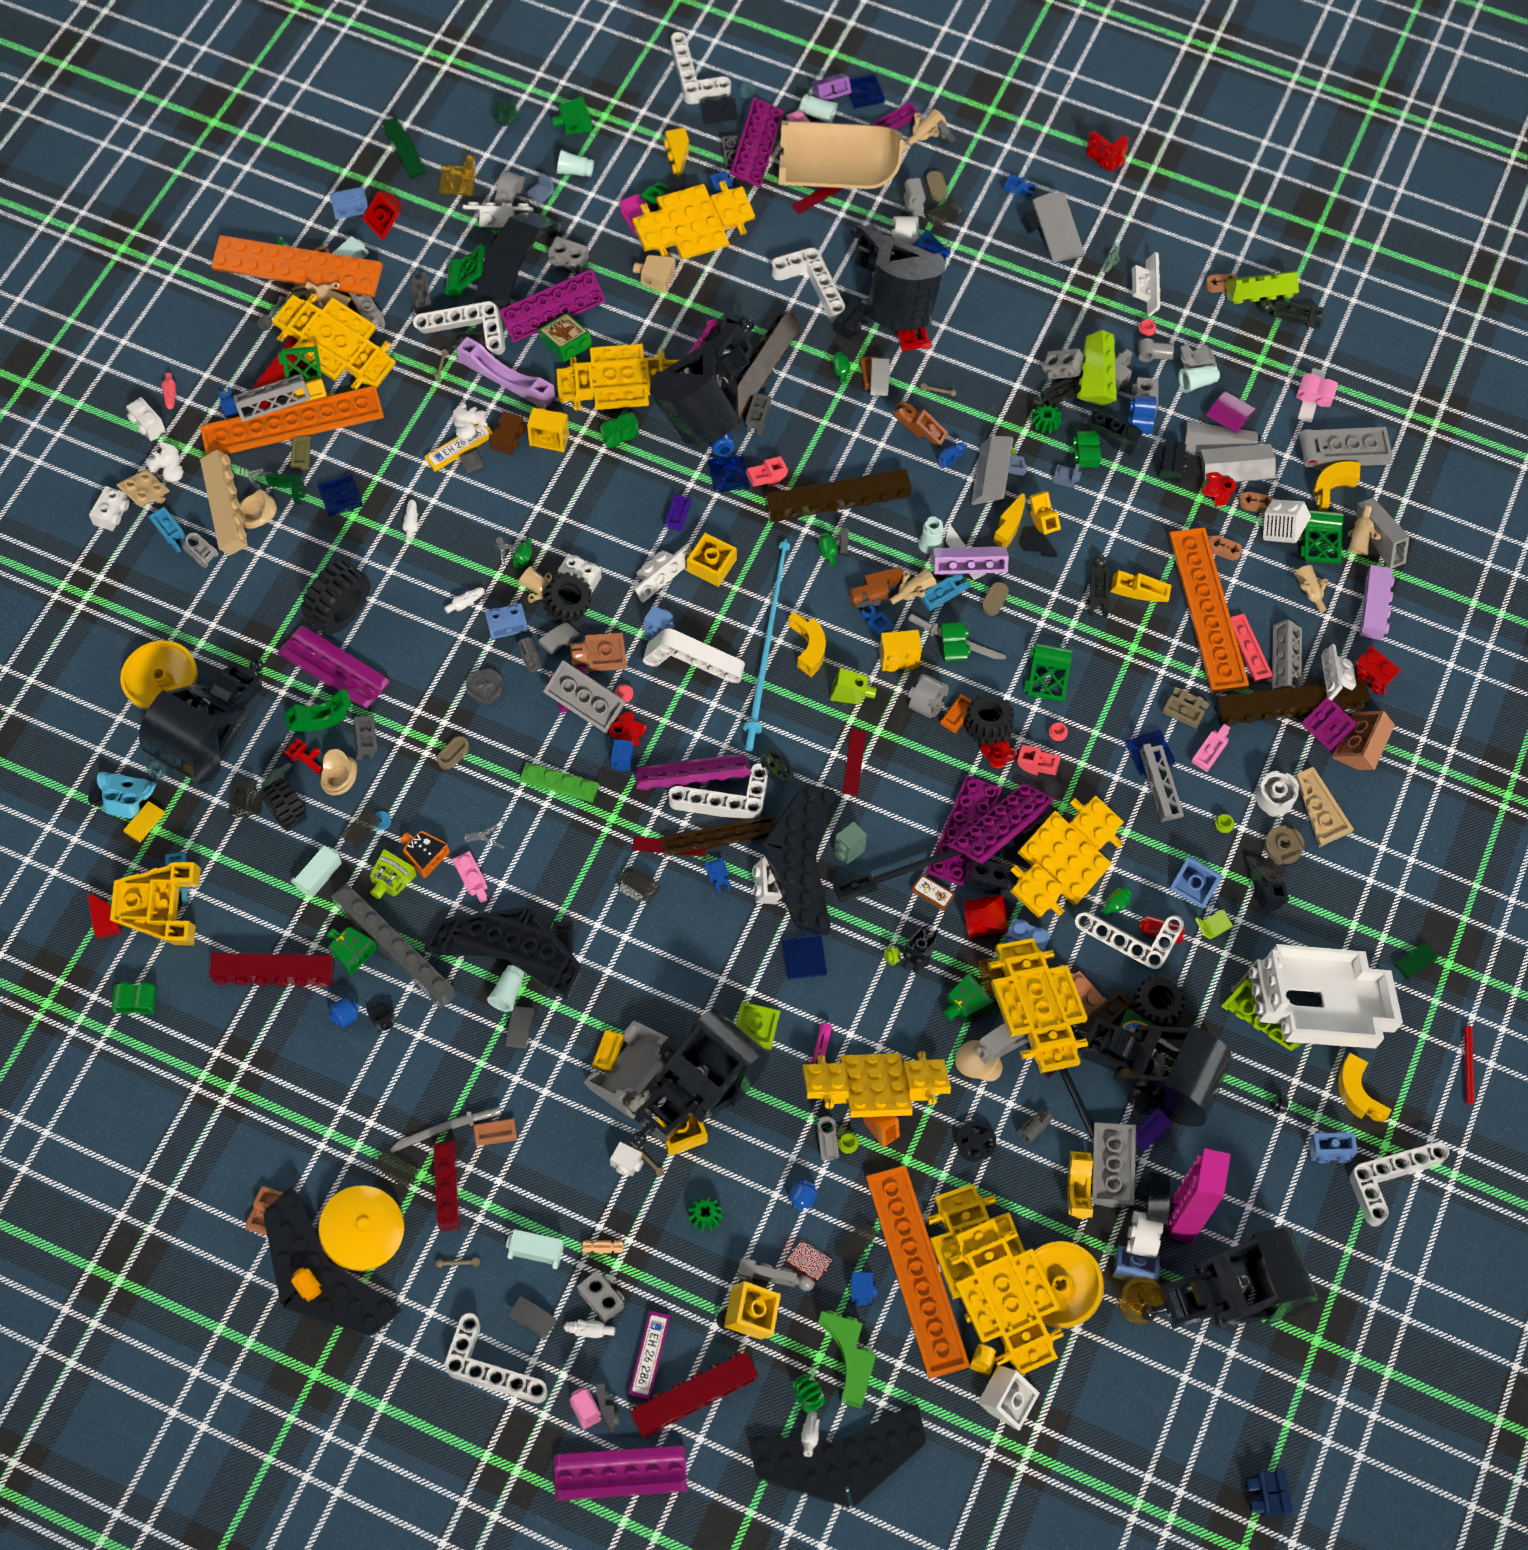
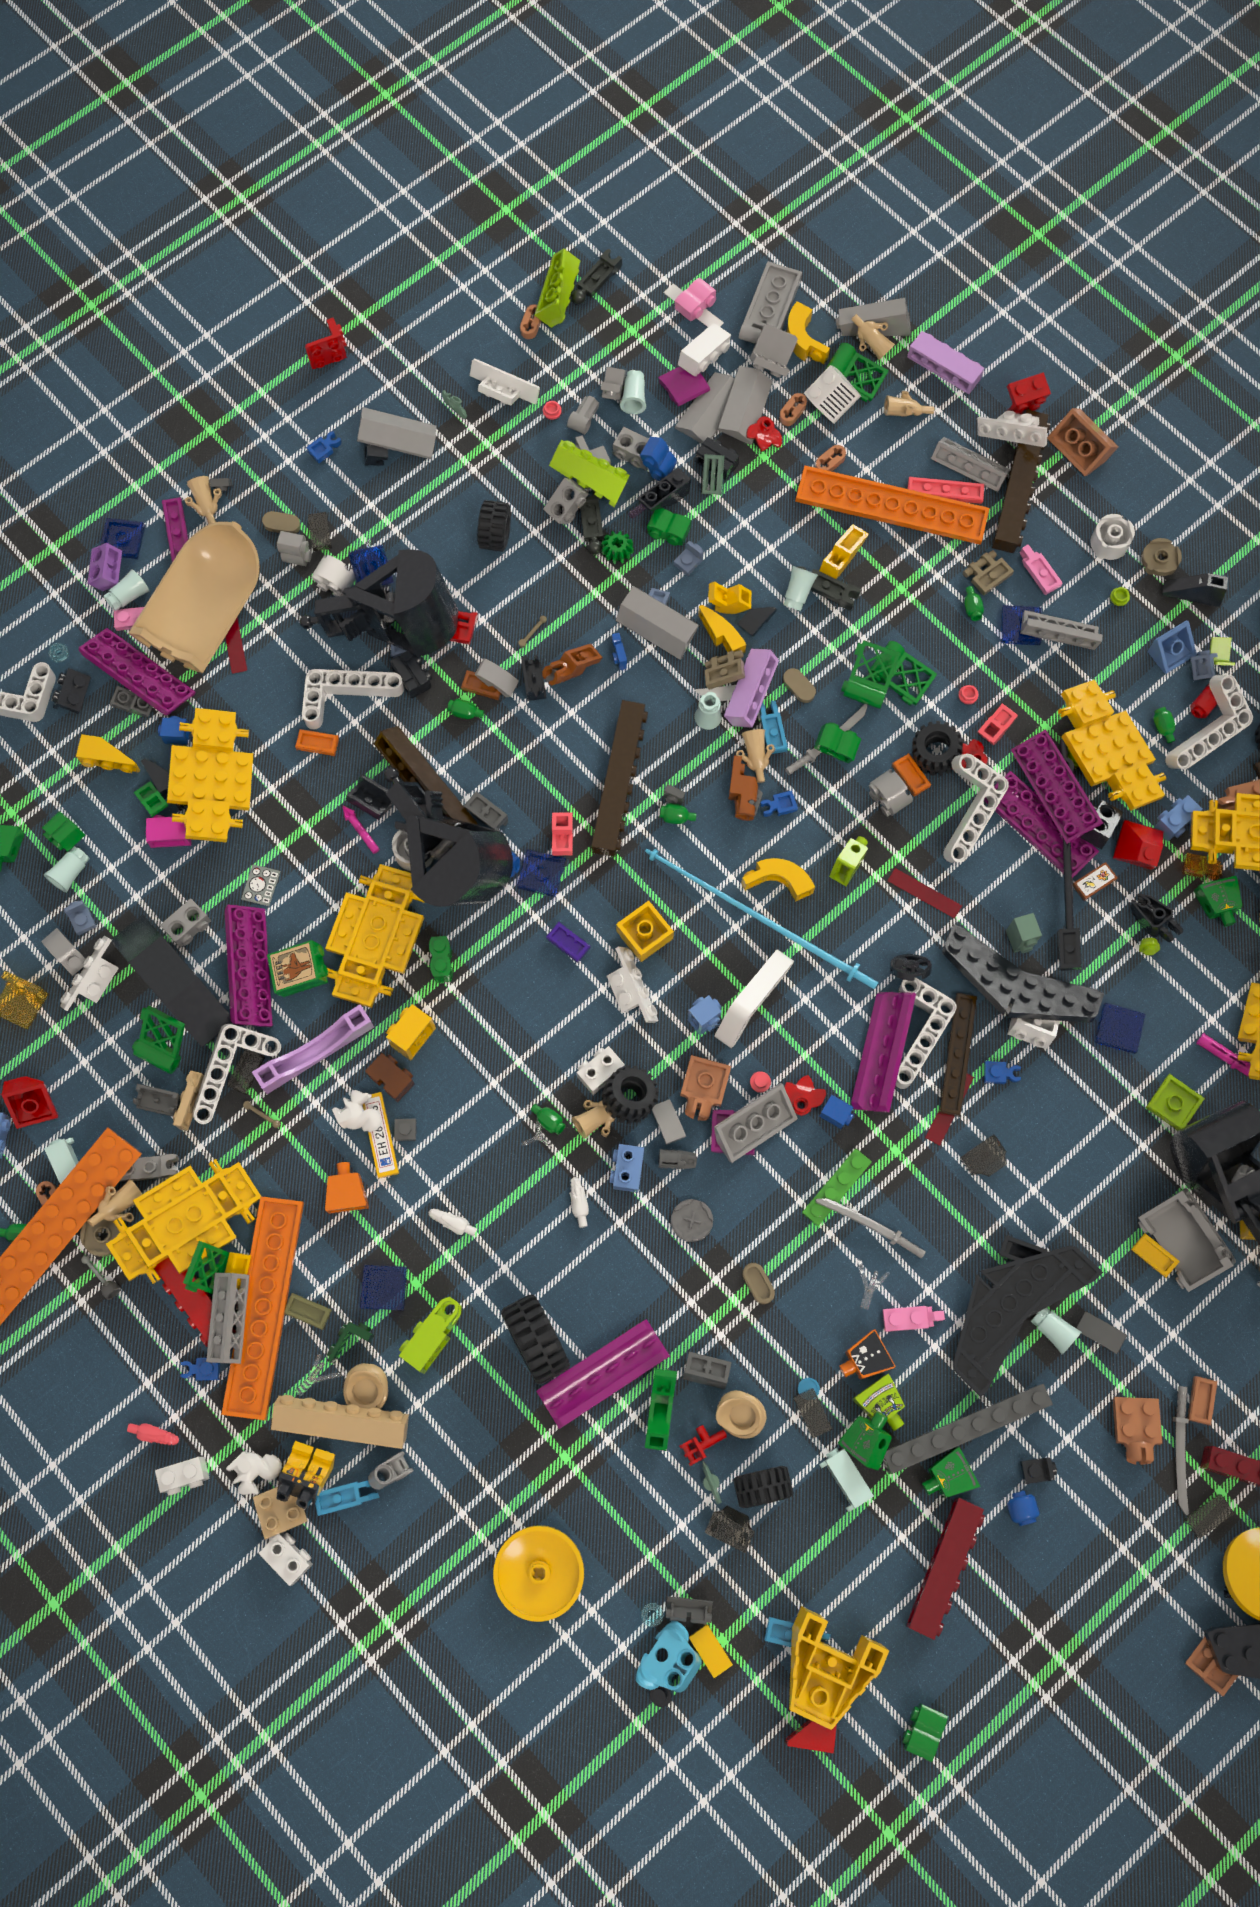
camera: 65 degrees left, 10 degrees up
(170, 797) = (680, 1608): none -> dark grey hinge
(174, 492) = (303, 1475): none -> hips
(187, 732) = (652, 1572): black piece -> none
(311, 534) = (430, 1336): none -> lime brick
(351, 868) = (867, 1440): none -> green torso
(403, 438) = (345, 1191): none -> orange torso
(412, 311) = (183, 1116): none -> tan hinge
(449, 1084) = (1137, 1427): none -> nougat plate
(535, 839) = (894, 1237): none -> light grey sword
(601, 149) = (62, 832): none -> green brick
(625, 292) = (260, 885): none -> sticker
(656, 272) = (255, 842): tan torso -> none
(761, 282) = (317, 742): none -> orange tile
(886, 403) = (533, 678): none -> black hinge
(900, 650) = (830, 796): yellow brick -> none
(948, 767) = (977, 807): none -> white beam
(975, 534) = (724, 669): none -> dark tan plate
(1010, 320) = (494, 525): none -> black tyre
(1017, 650) = (865, 690): none -> green piece
(1083, 561) = (799, 587): none -> light aqua plant
(1146, 705) = (973, 604): none -> green plant
(1153, 461) = (713, 474): none -> sand green tile
(1191, 911) = (1203, 665): none -> sand blue bracket
(1269, 411) = (704, 349): none -> white brick
(1298, 461) = (773, 350): none -> light grey bracket
(1323, 811) = (1141, 509): tan wing -> none
(1329, 724) = (1058, 461): magenta slope -> none

